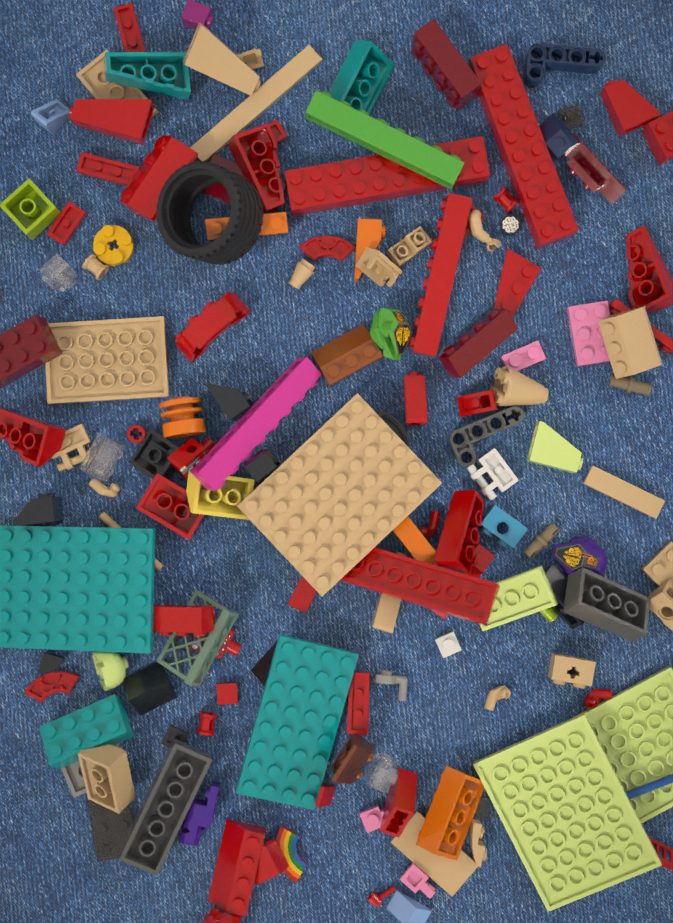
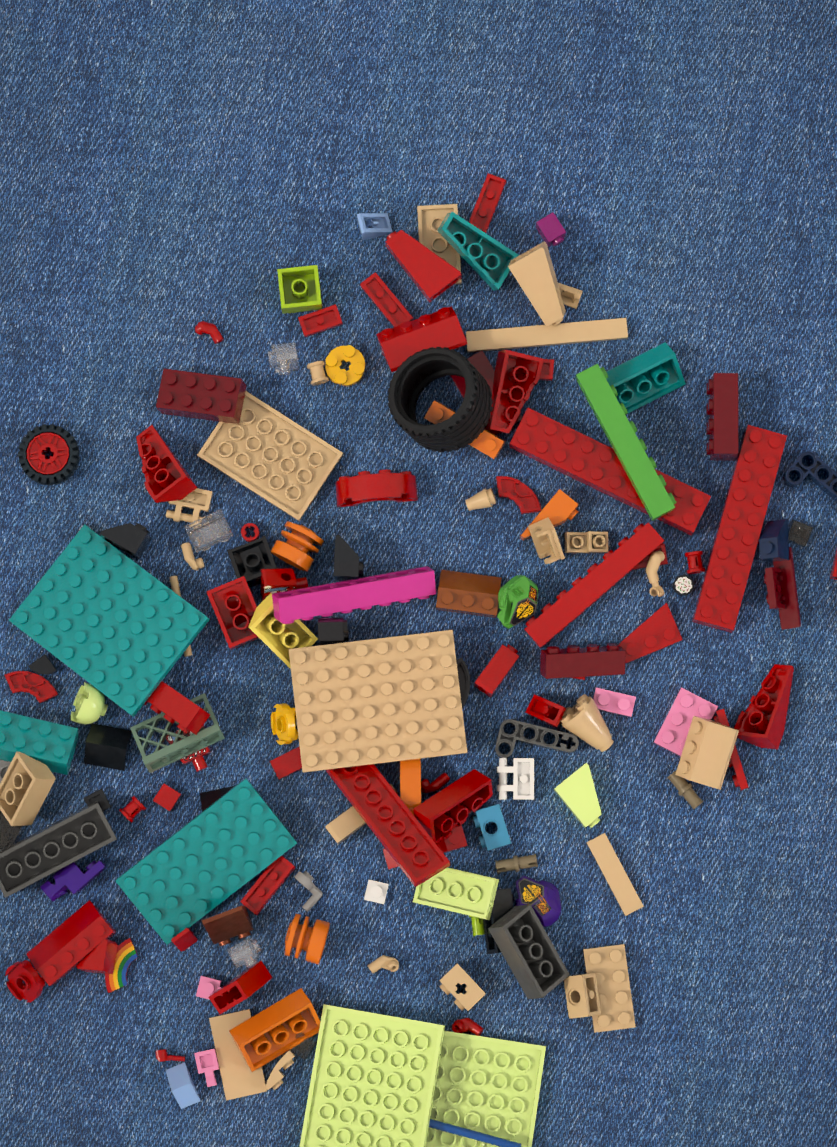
camera: 45 degrees right, 5 degrees down
(277, 567) = (284, 724): none -> yellow plate
(422, 724) = (306, 938): none -> orange wheel

